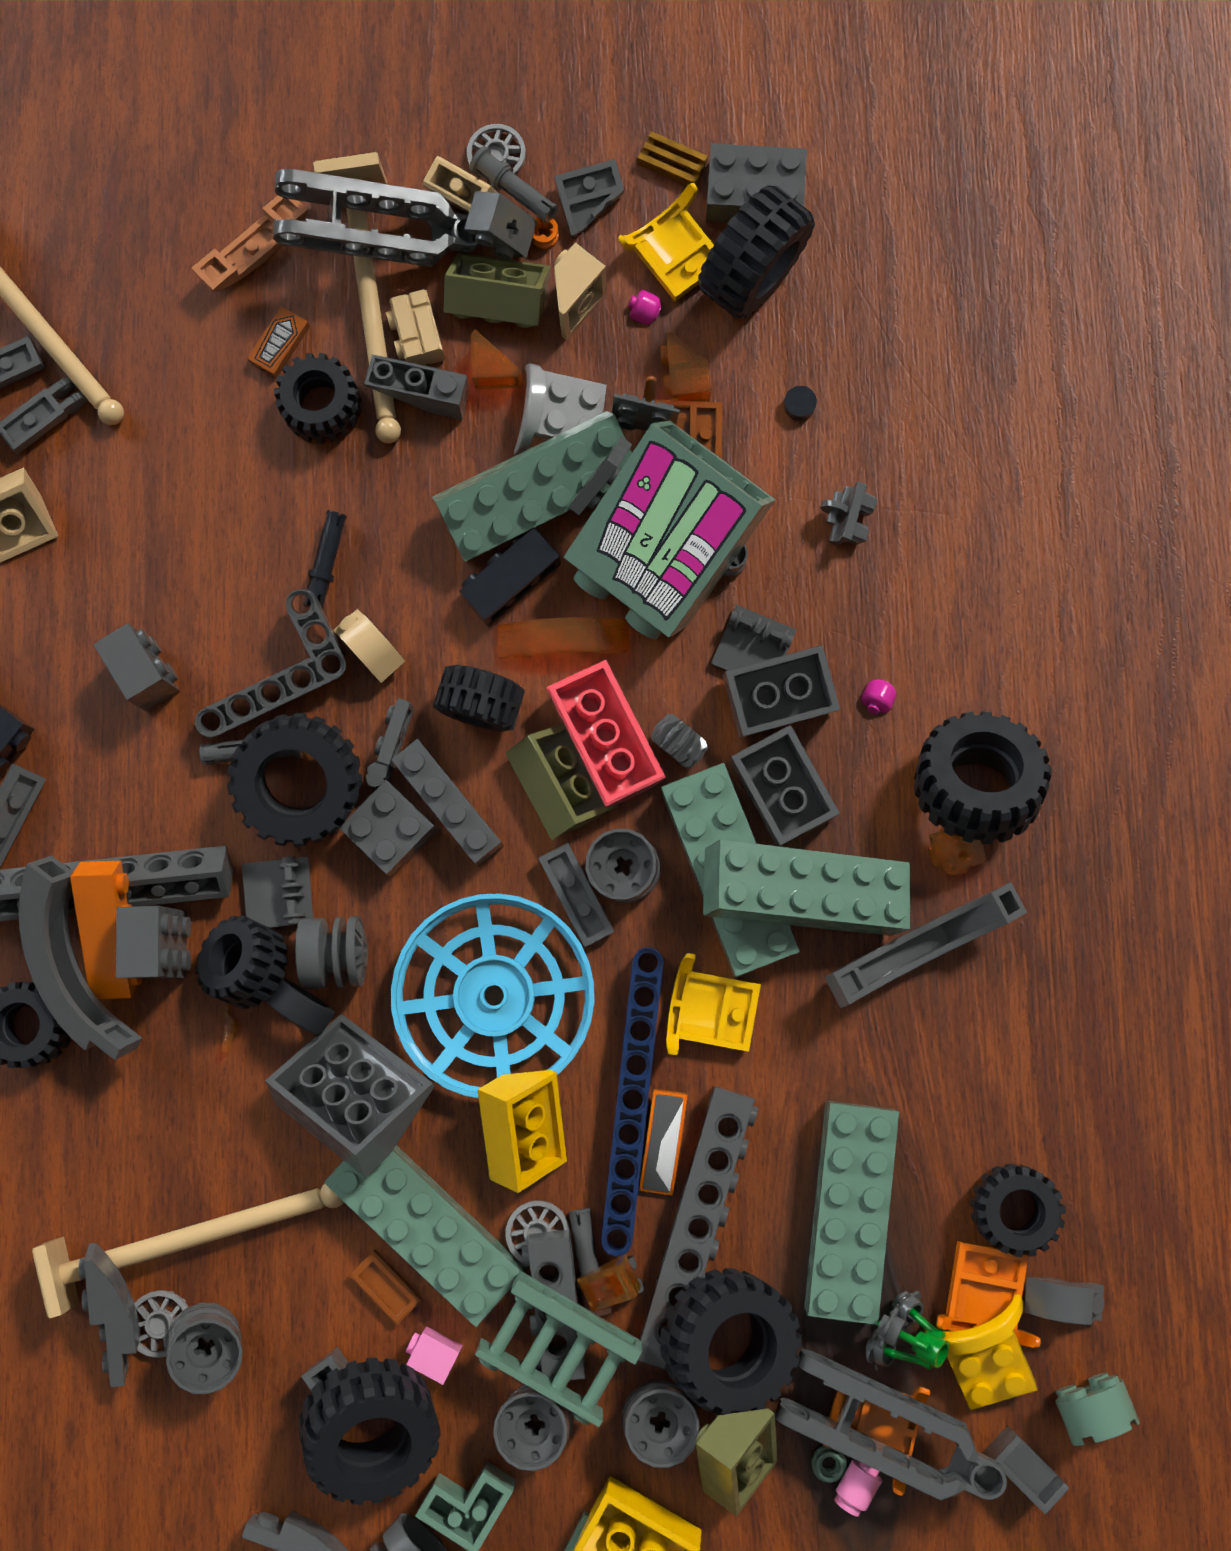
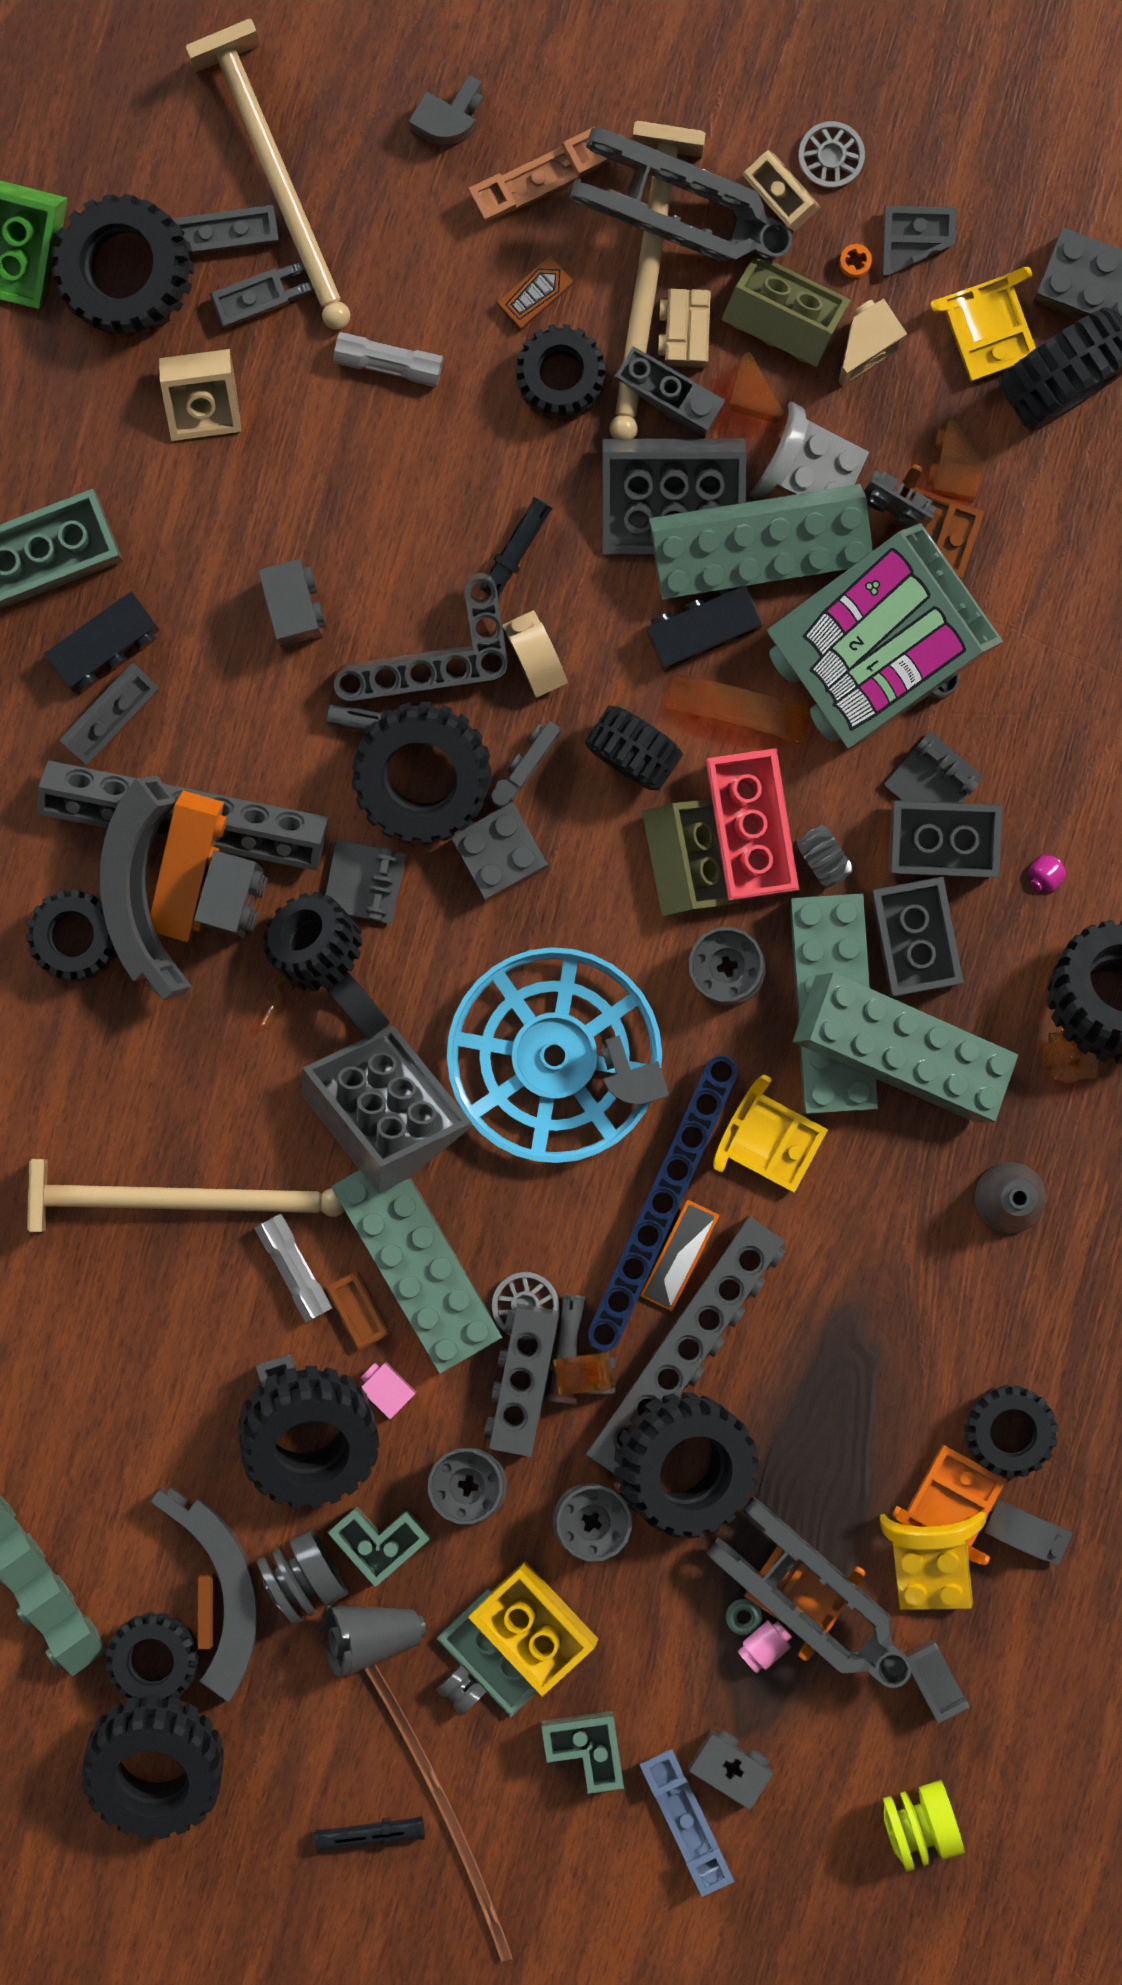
camera: 15 degrees right, 5 degrees up
(113, 1309) = (86, 1246): dark grey slope -> none
(159, 223) = (448, 123): none -> dark grey brick
(159, 1321) = (121, 1275): light grey wheel -> none
(189, 433) = (413, 365): none -> light grey axle
(201, 1367) = (184, 1317): dark grey wheel -> none
(327, 952) = (405, 960): dark grey wheel -> none
(332, 1285) = (292, 1266): none -> light grey axle
(434, 460) = (665, 479): none -> dark grey slope
(447, 802) = (567, 844): dark grey brick -> none
(500, 225) = (810, 247): dark grey brick -> none
(503, 178) = (829, 189): dark grey pin -> none
(522, 1127) = (544, 1195): yellow slope -> none
(570, 1001) = (634, 1085): none -> dark grey brick
(576, 895) = (669, 980): dark grey plate -> none
(589, 1328) = (526, 1384): sand green fence -> none
(605, 472) = (835, 558): dark grey wing -> none
(644, 307) = (936, 377): dark pink piece -> none
(654, 145) = (1028, 213): pearl gold tile -> none
(736, 1456) = (657, 1574): olive slope -> none
(800, 403) = (1067, 535): black tile -> none
(844, 511) = (1074, 669): dark grey hips -> none
(851, 1212) = (846, 1381): sand green brick -> none
(925, 943) = (1006, 1141): dark grey arch -> none
(929, 1346) = (878, 1531): plant -> none
(943, 993) = (996, 1192): none -> dark grey cone
(1096, 1409) = (1022, 1645): sand green brick -> none

